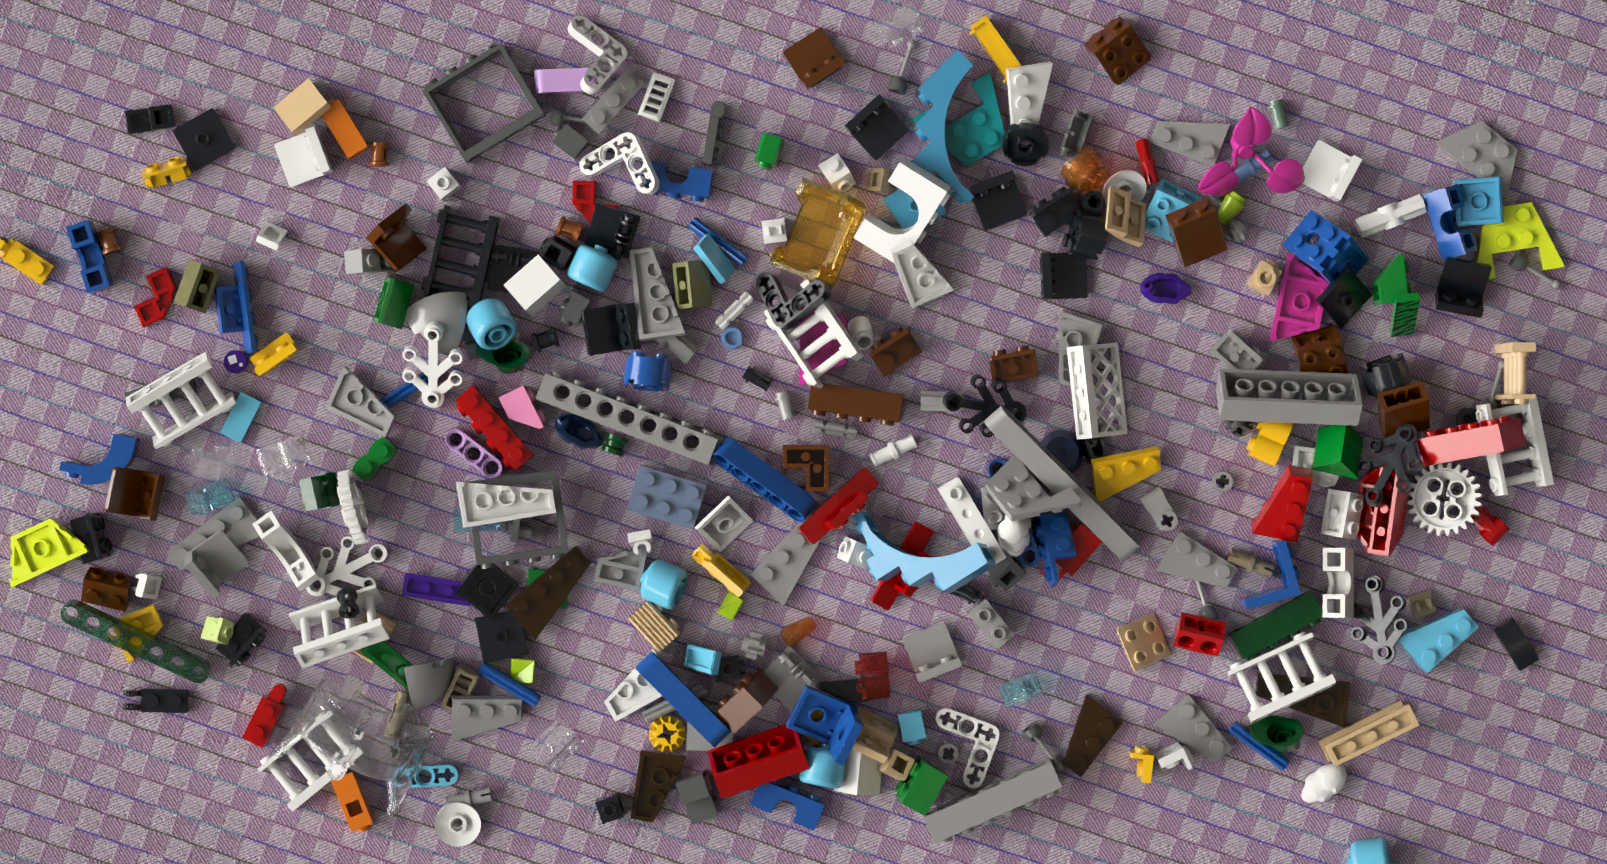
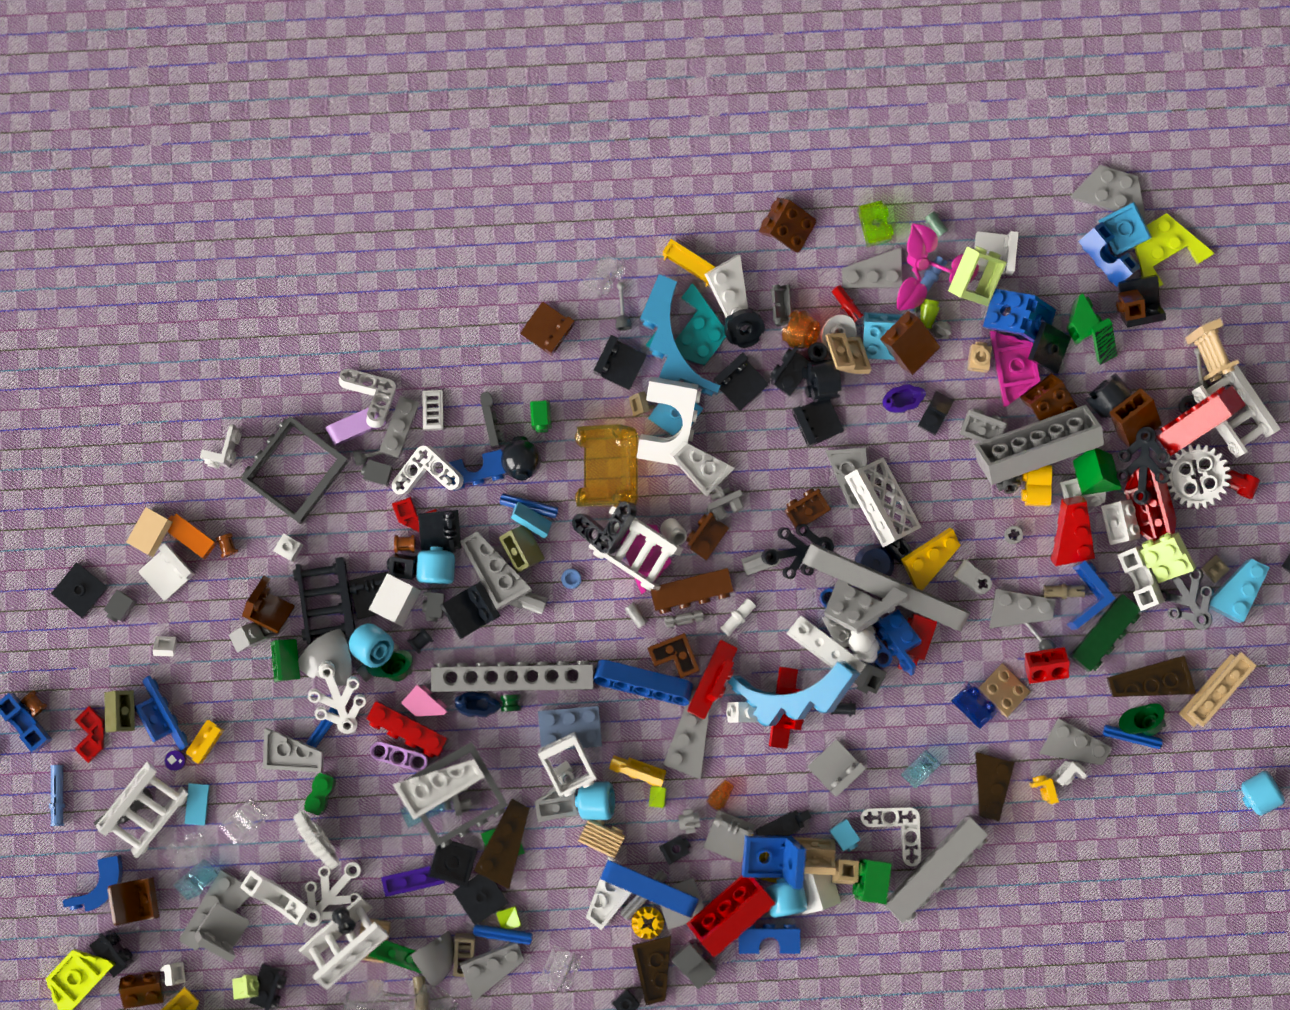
camera: 25 degrees left, 5 degrees down
(96, 349) = (57, 795): none -> medium blue pin
(149, 119) = (29, 591): black slope -> none
(157, 173) = (64, 623): yellow hinge -> none
(239, 174) = (119, 606): none -> dark grey brick
(320, 491) = (285, 838): dark green piece -> none
(419, 57) = (228, 455): none -> white bracket
(644, 512) = (558, 746): none -> white window
(648, 372) = (514, 633): blue brick -> none
(702, 659) = (652, 849): medium azure tile -> none
(724, 523) = (625, 731): white slope -> none
(729, 188) = (521, 458): none -> black brick
(734, 310) = (564, 555): white axle -> none
(748, 699) = (703, 866): reddish brown brick -> none
(757, 378) = (604, 603): black pin -> none
(774, 231) = (570, 479): white tile -> none
(837, 173) = (603, 412): white bracket -> none
(873, 674) = (797, 806): clear red brick -> none
(918, 325) = (717, 507): none -> light grey hips
(955, 753) = (877, 847): light grey bush -> none
(990, 623) = (874, 725): light grey brick -> none
(1033, 733) = (946, 801): hinge -> none
(1105, 645) = (974, 705): none -> clear blue bracket
(1193, 317) = (935, 413): none -> black slope
(1210, 73) = (872, 234): none -> clear neon green brick
(1279, 700) = (1134, 693): white fence -> none
(1308, 199) = (988, 280): none -> yellowish green window
(1324, 783) = (1198, 746): white arm -> none
(1374, 571) = (1167, 557): none -> yellowish green plate
(1390, 216) = (1059, 268): white piece -> none
(1449, 287) = (1131, 305): none -> reddish brown brick
(1520, 262) = (1178, 264): hinge -> none

